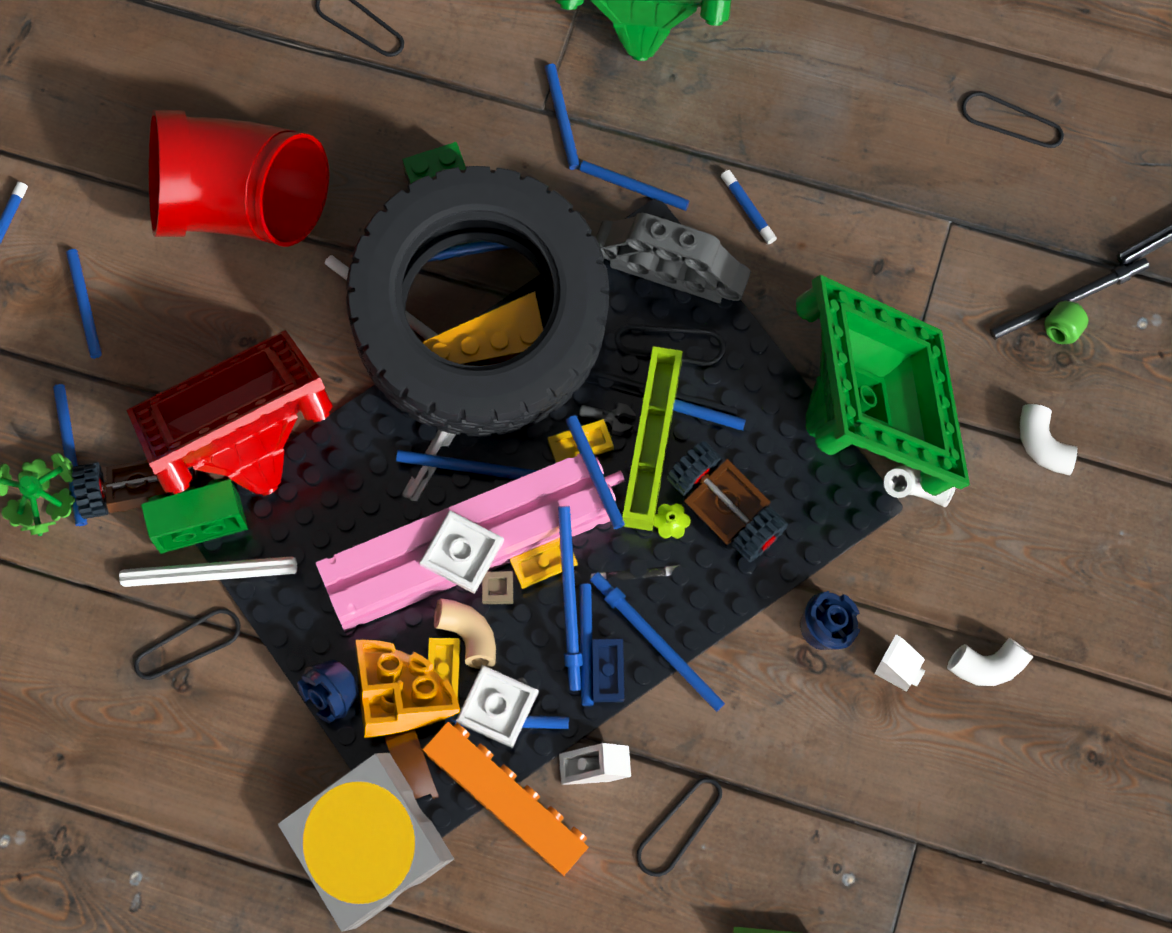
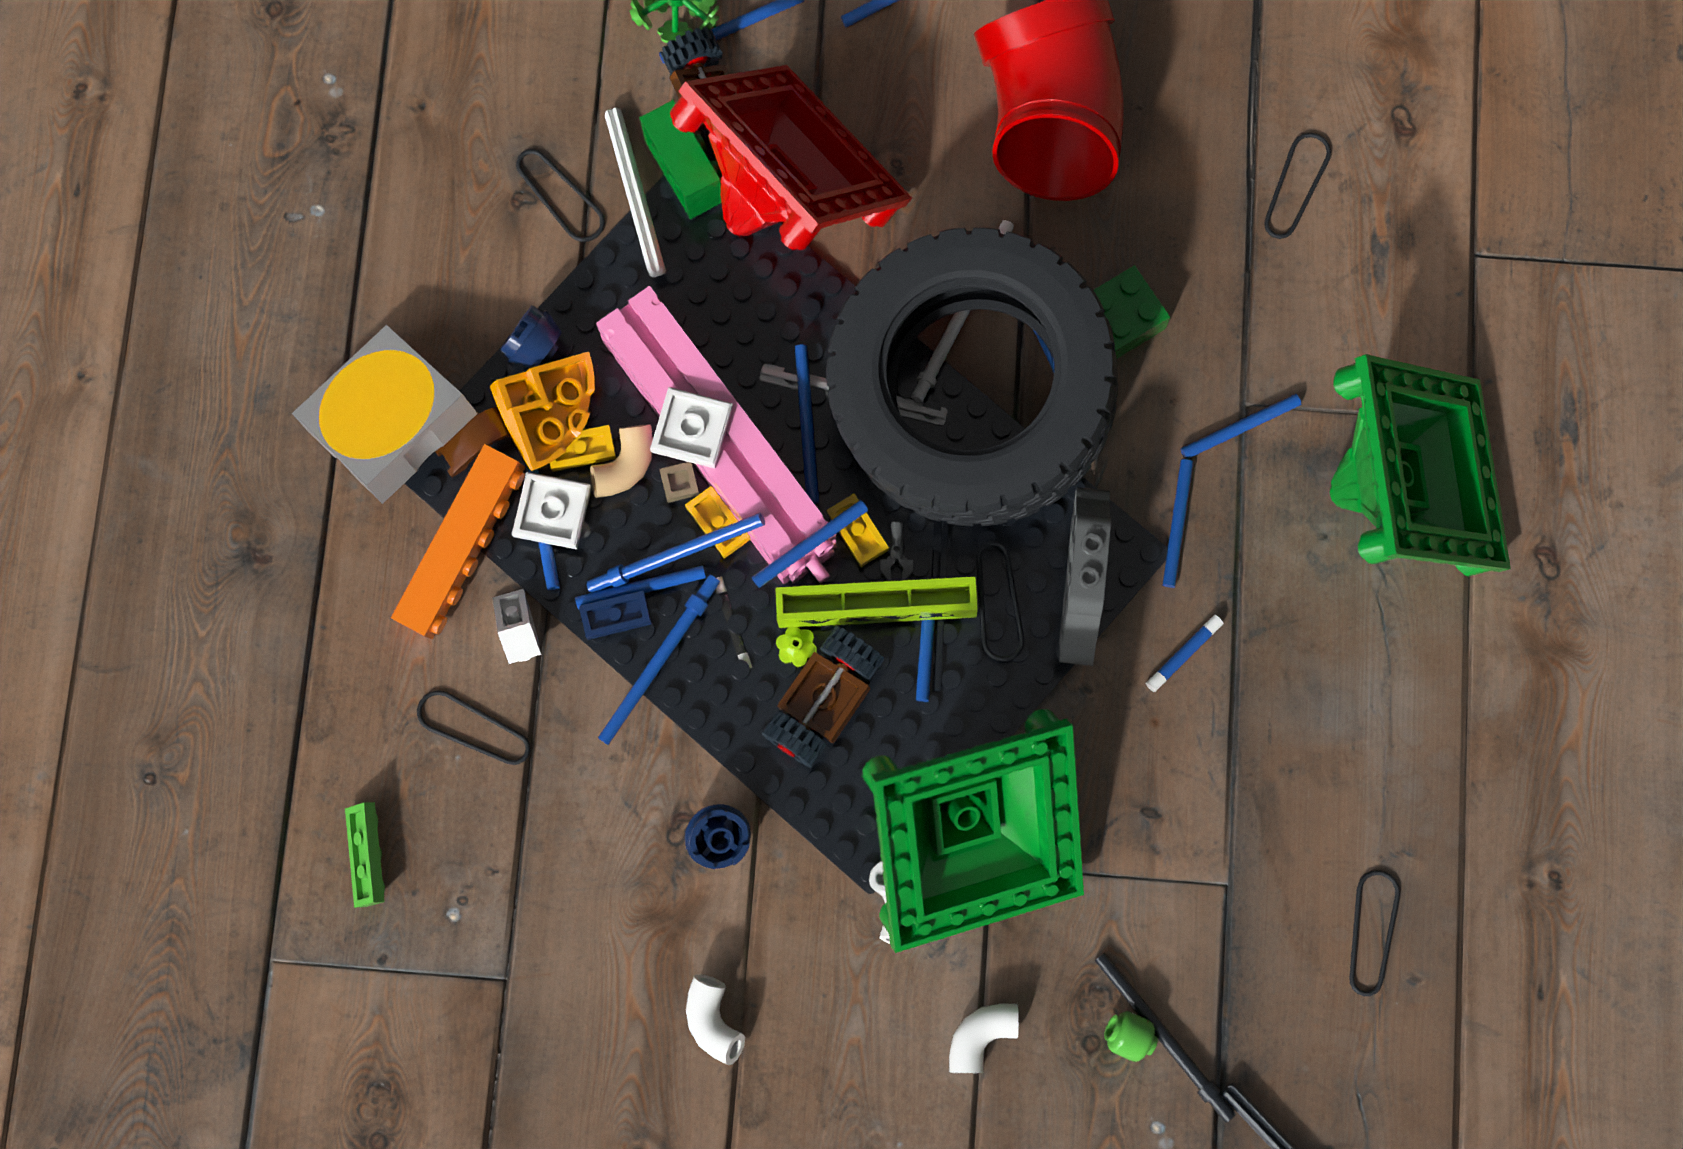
camera: 80 degrees right, 5 degrees up
(491, 336) = (938, 400): light orange wedge -> none
(901, 665) = (687, 922): white slope -> none

